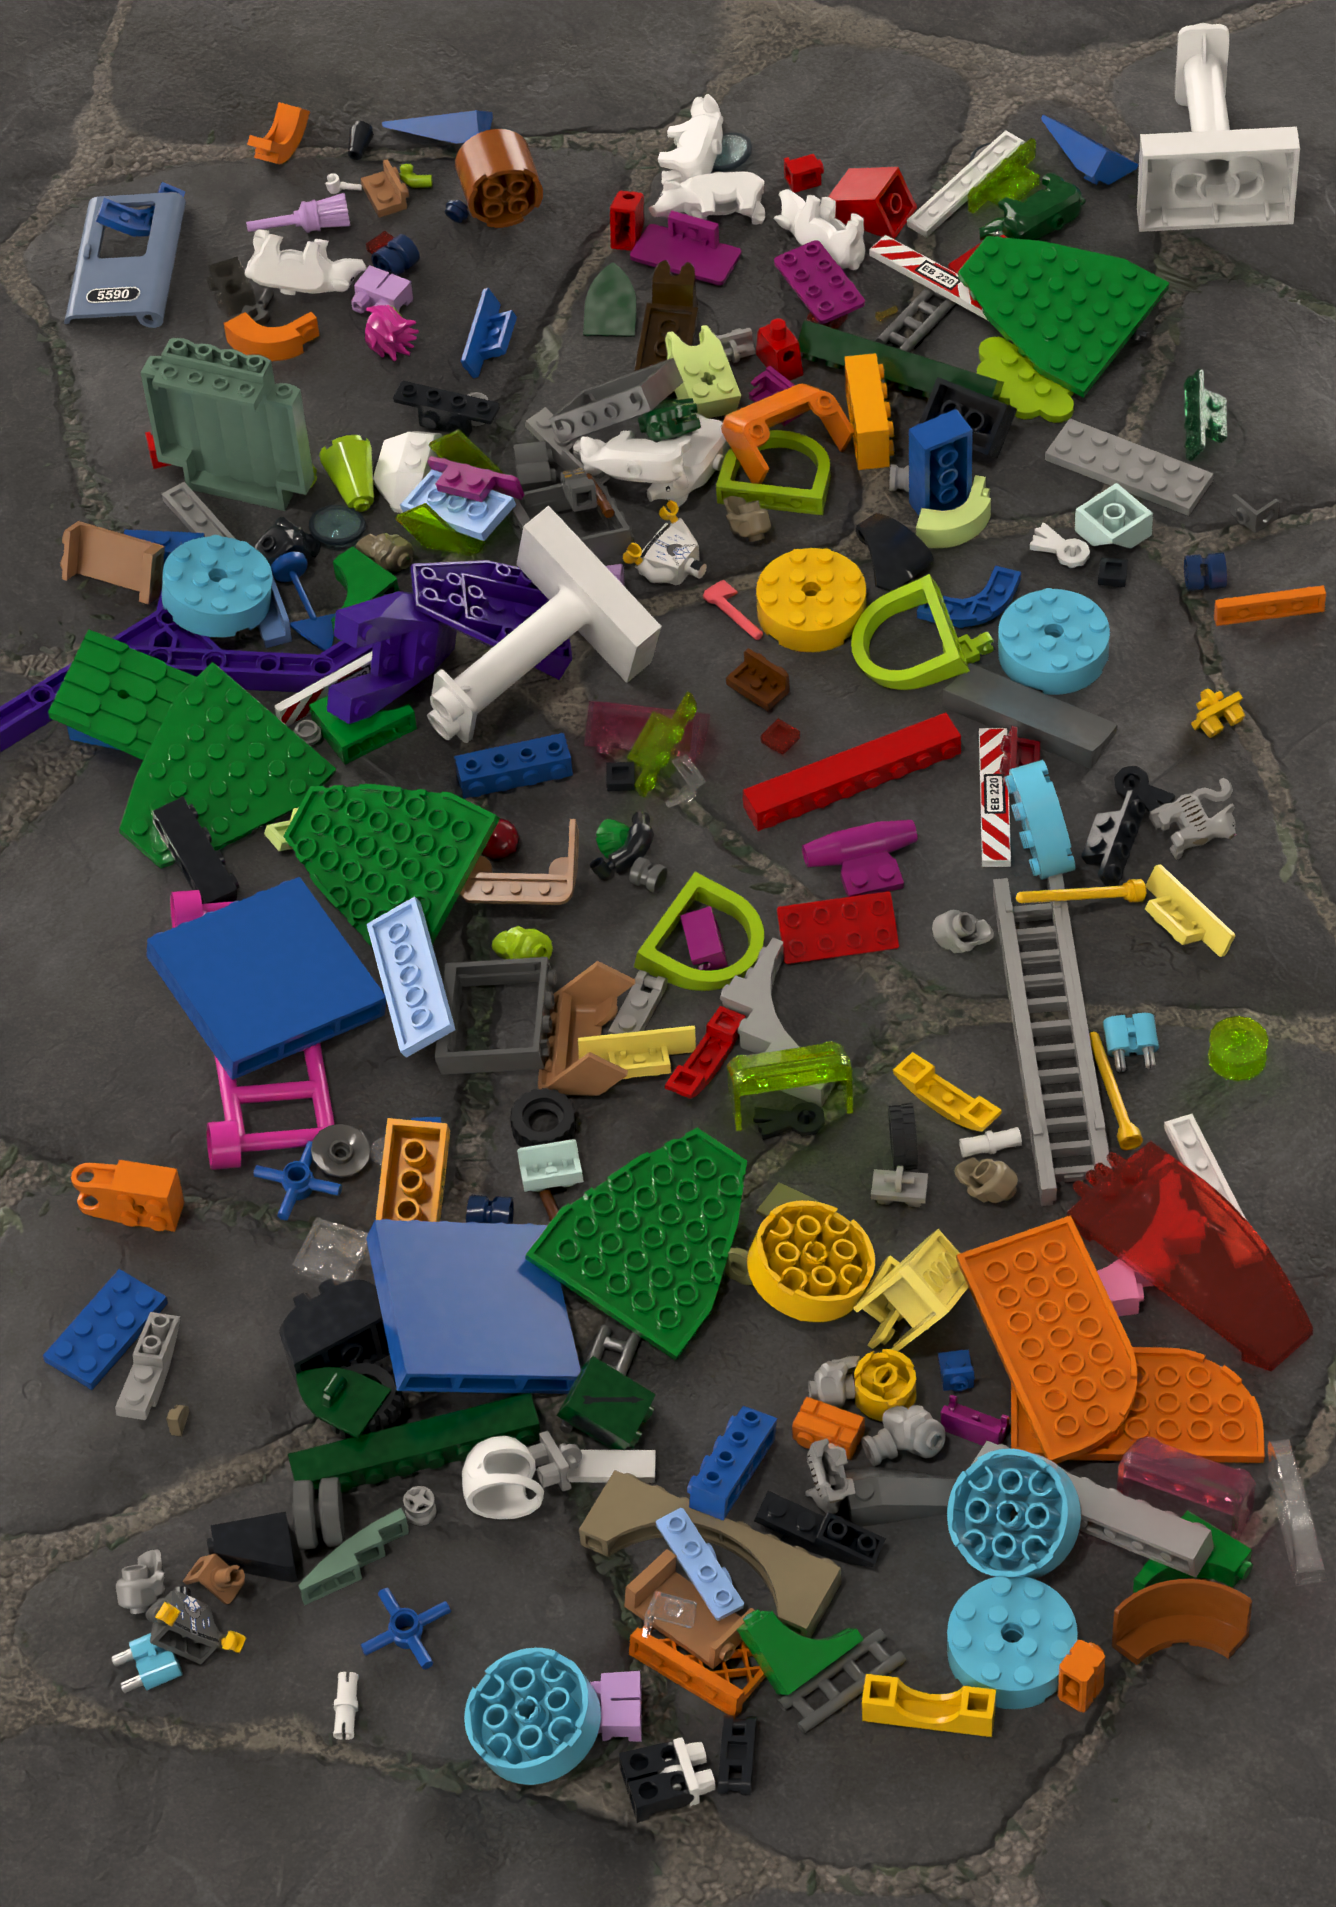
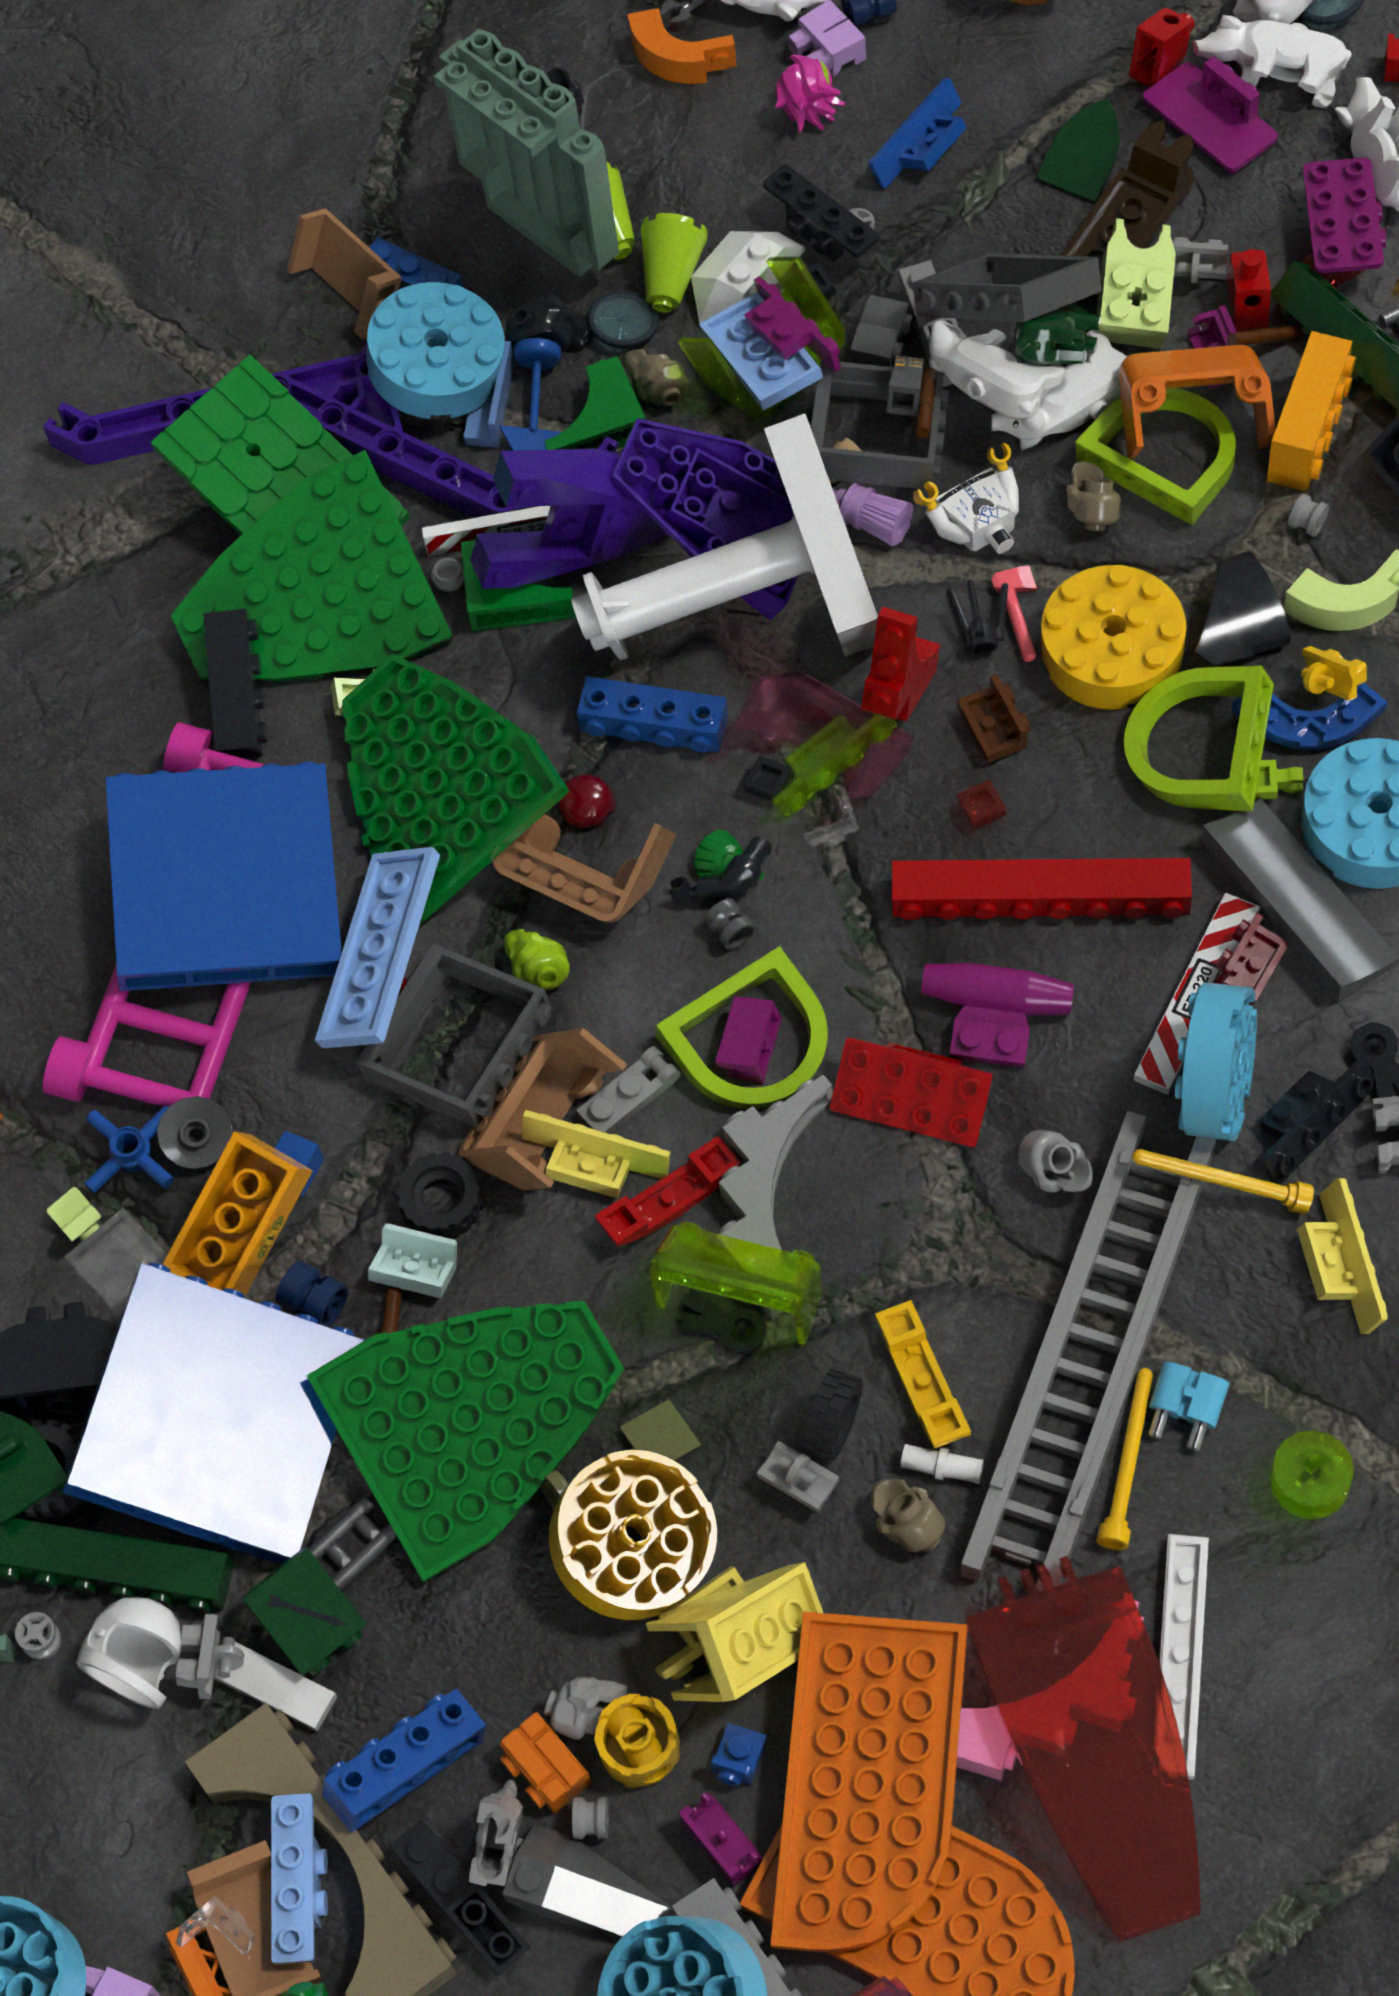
camera: 30 degrees right, 10 degrees up
(193, 512) = (475, 253): light grey plate -> none
(283, 1237) = (74, 1215): none -> yellowish green bracket
(682, 655) = (899, 666): none -> red arch
(719, 631) = (982, 635): none -> black plant
(807, 376) = (1263, 335): none -> reddish brown piece
(914, 1430) = (638, 1819): light grey head -> none
(940, 463) = (1350, 522): blue brick -> none
(974, 566) = (1332, 673): none -> yellow hips

